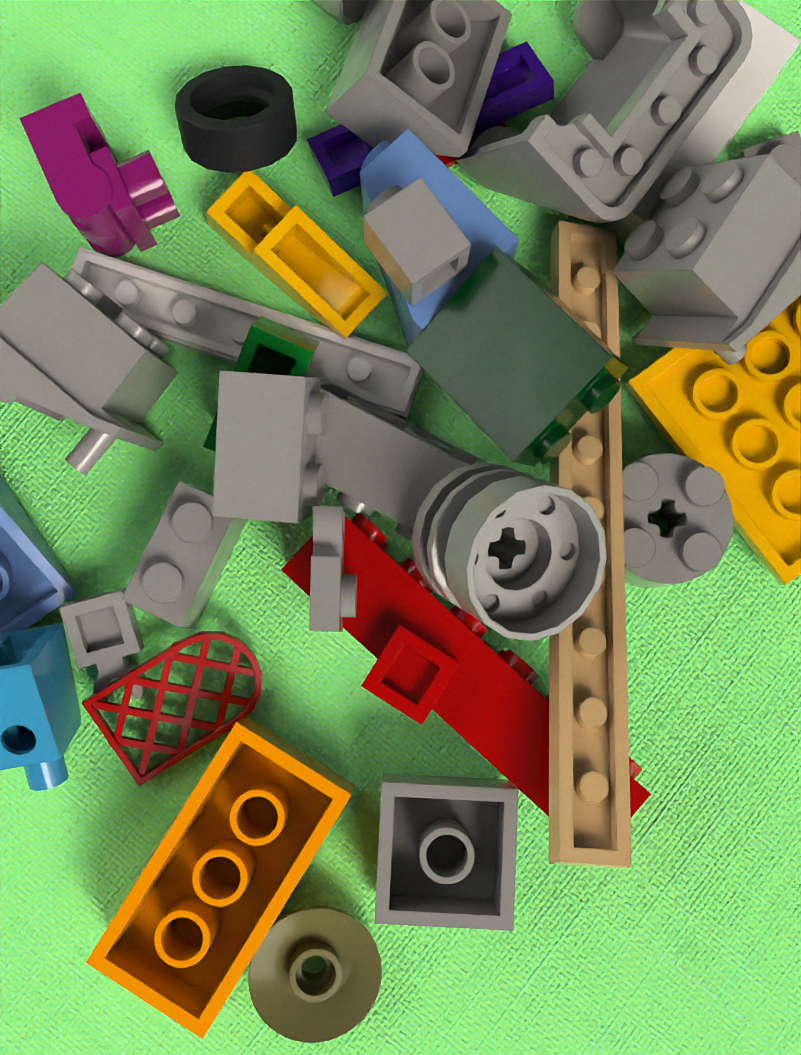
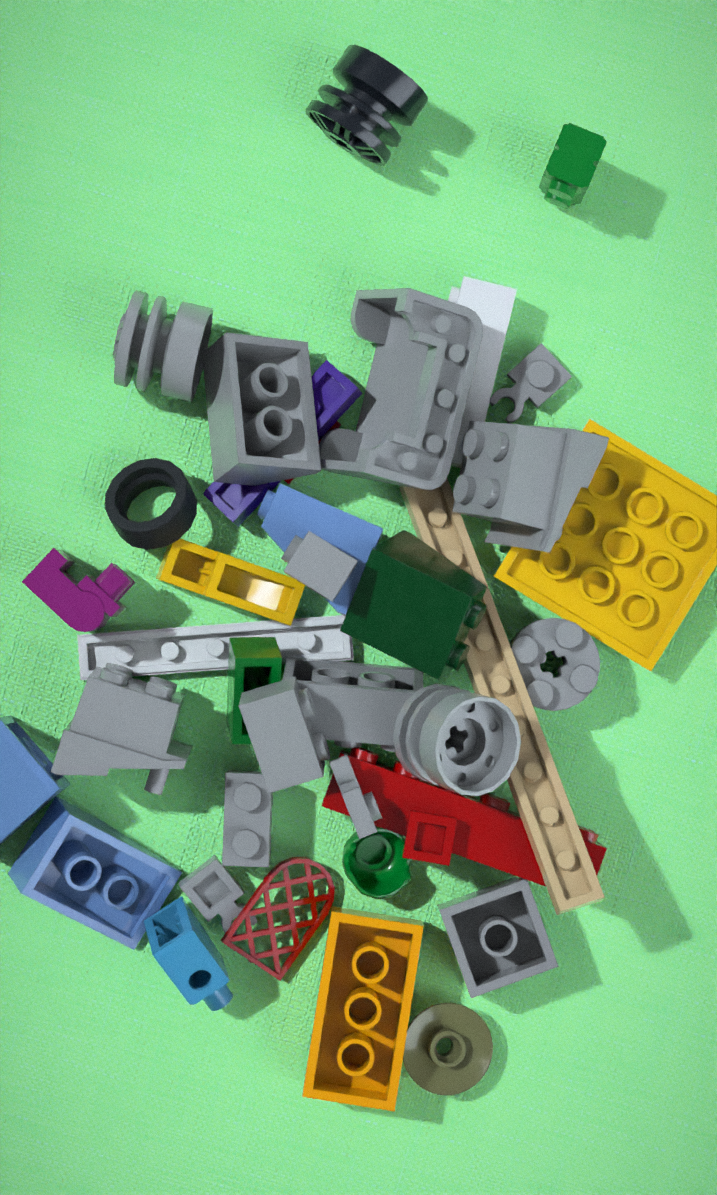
camera: 25 degrees left, 5 degrees up
(324, 682) = (376, 863): none -> green hair

